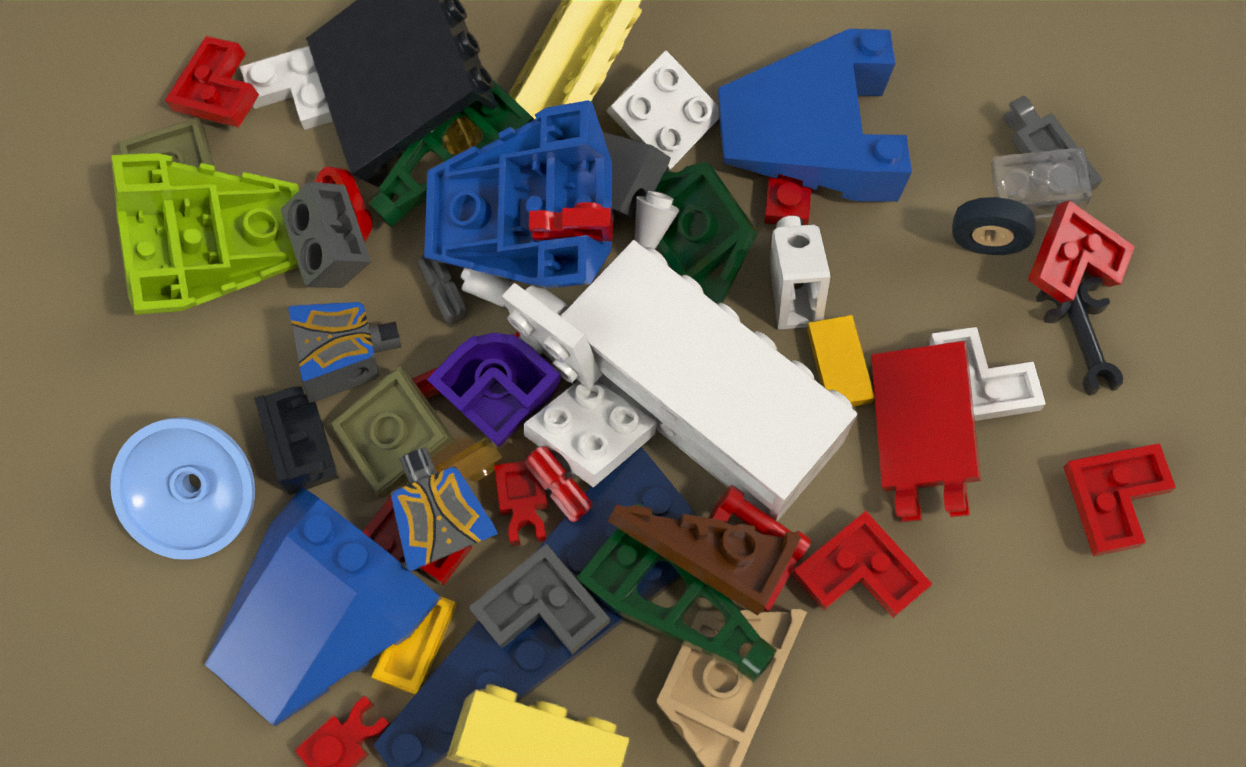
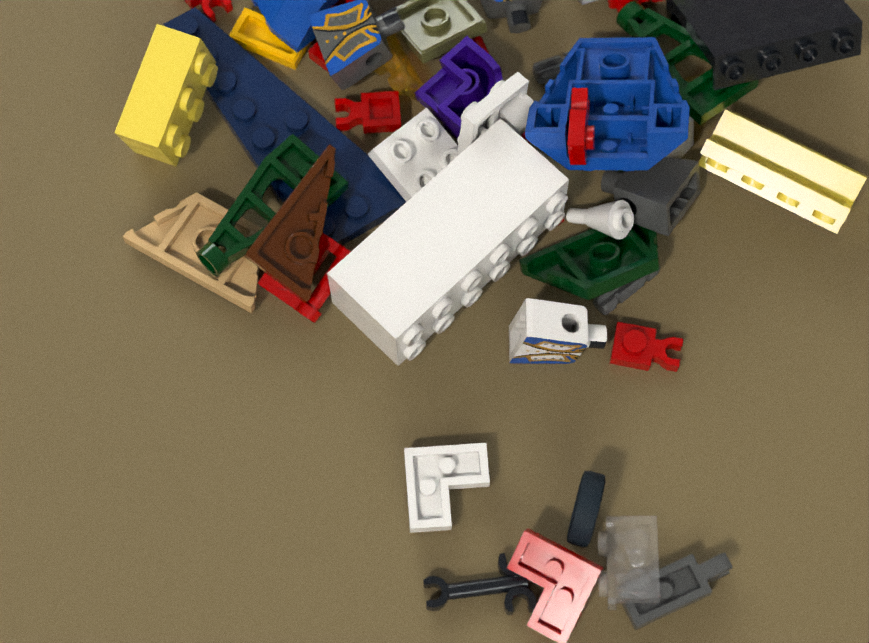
camera: 90 degrees right, 0 degrees up
(544, 590) = (285, 111): dark grey plate -> none
(565, 491) = (381, 127): red piece -> none
(665, 109) = (725, 243): white plate -> none
(806, 118) = (714, 351): blue wedge -> none
(841, 359) = (470, 369): yellow tile -> none
(866, 556) = (293, 359): red plate -> none
(926, 426) = (396, 423): red tile -> none
(1105, 491) = (330, 569): red plate -> none

